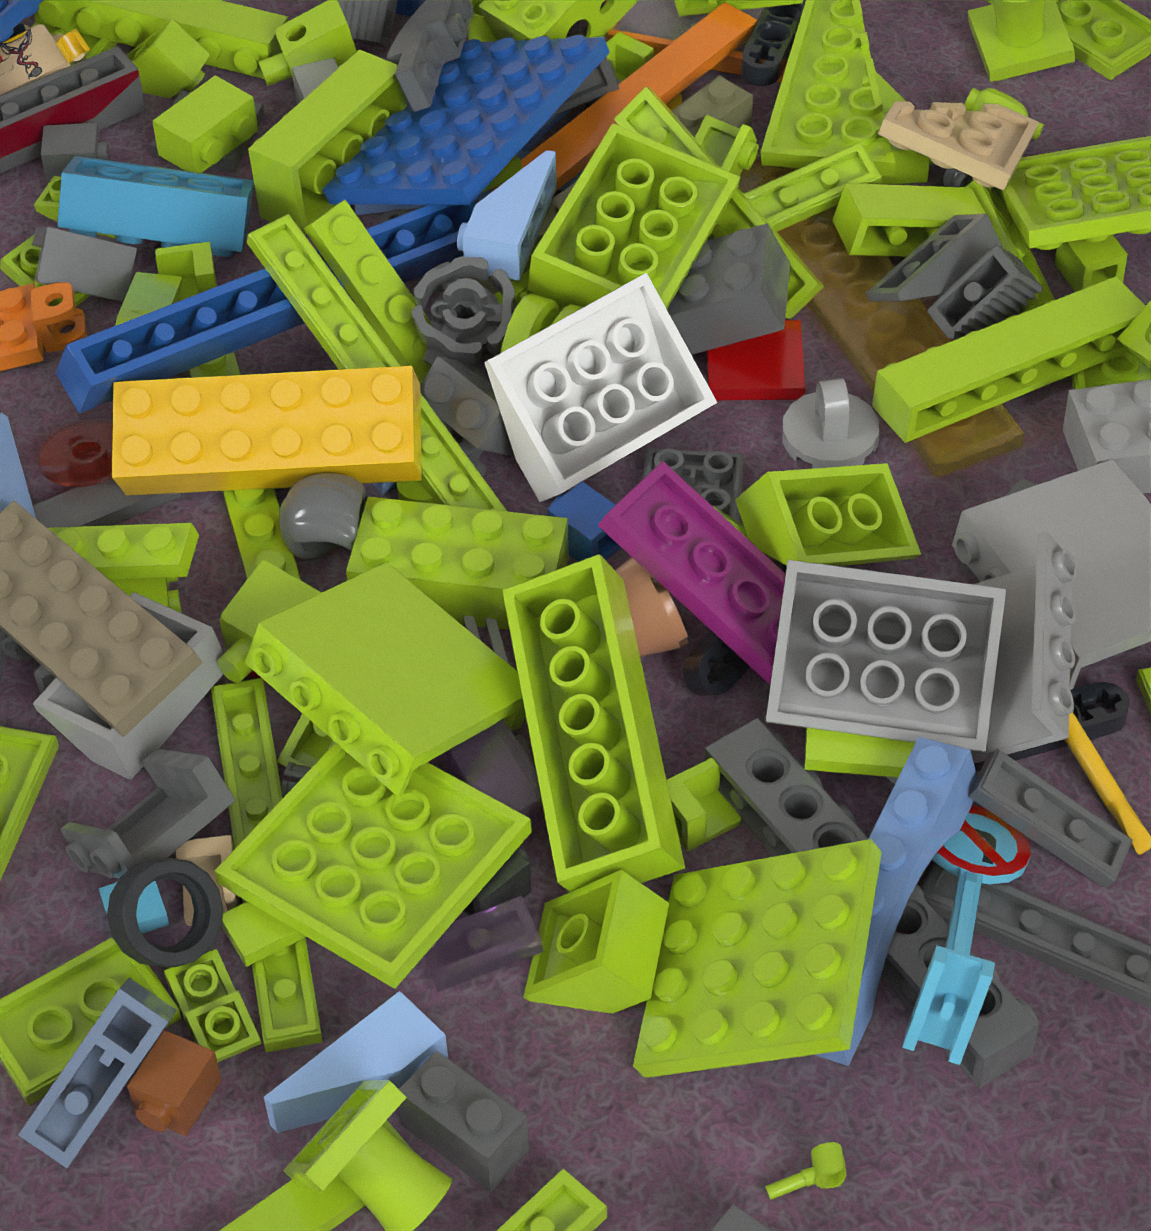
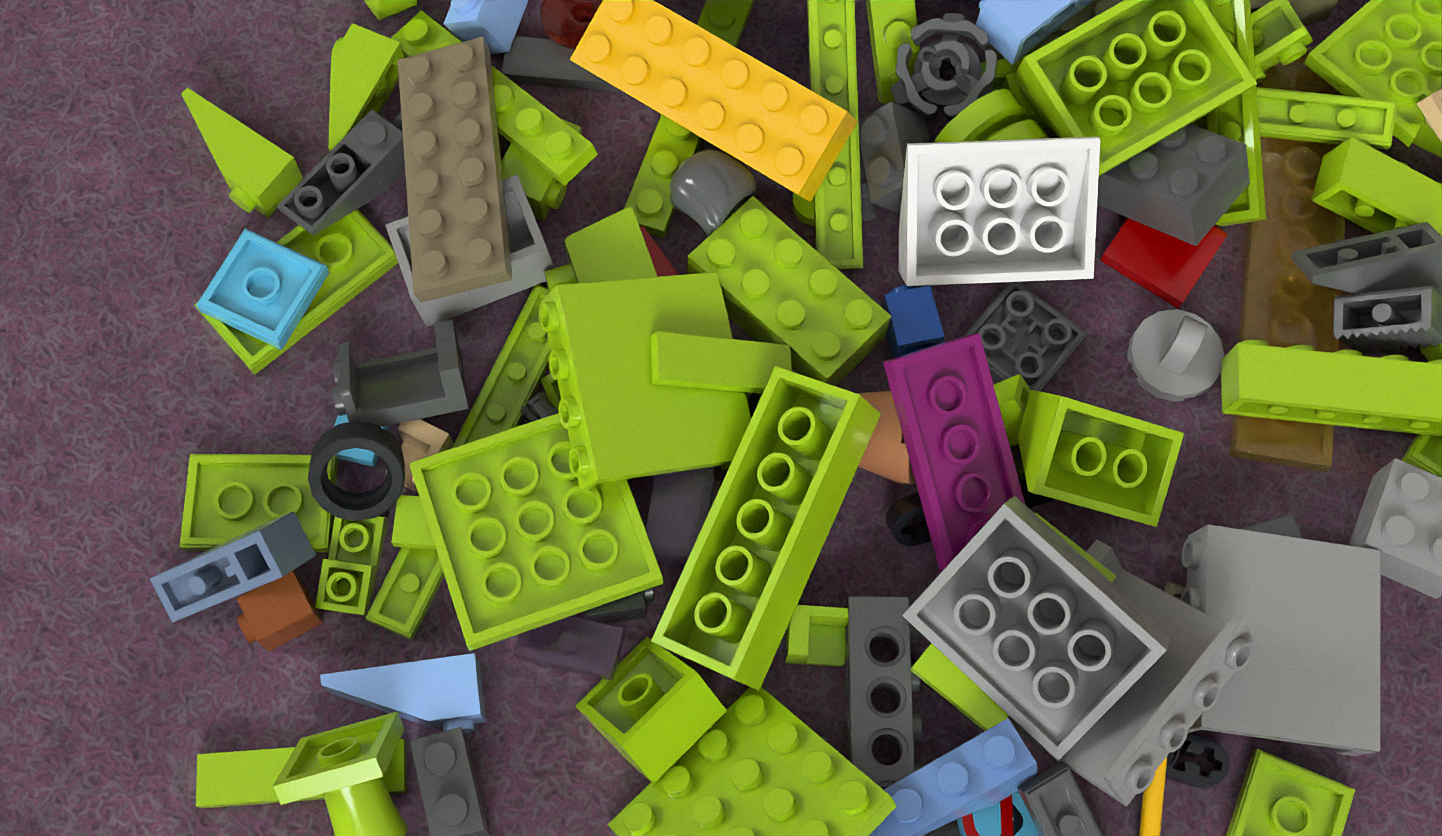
camera: 30 degrees right, 20 degrees up
(443, 626) = (715, 362): none -> lime tile

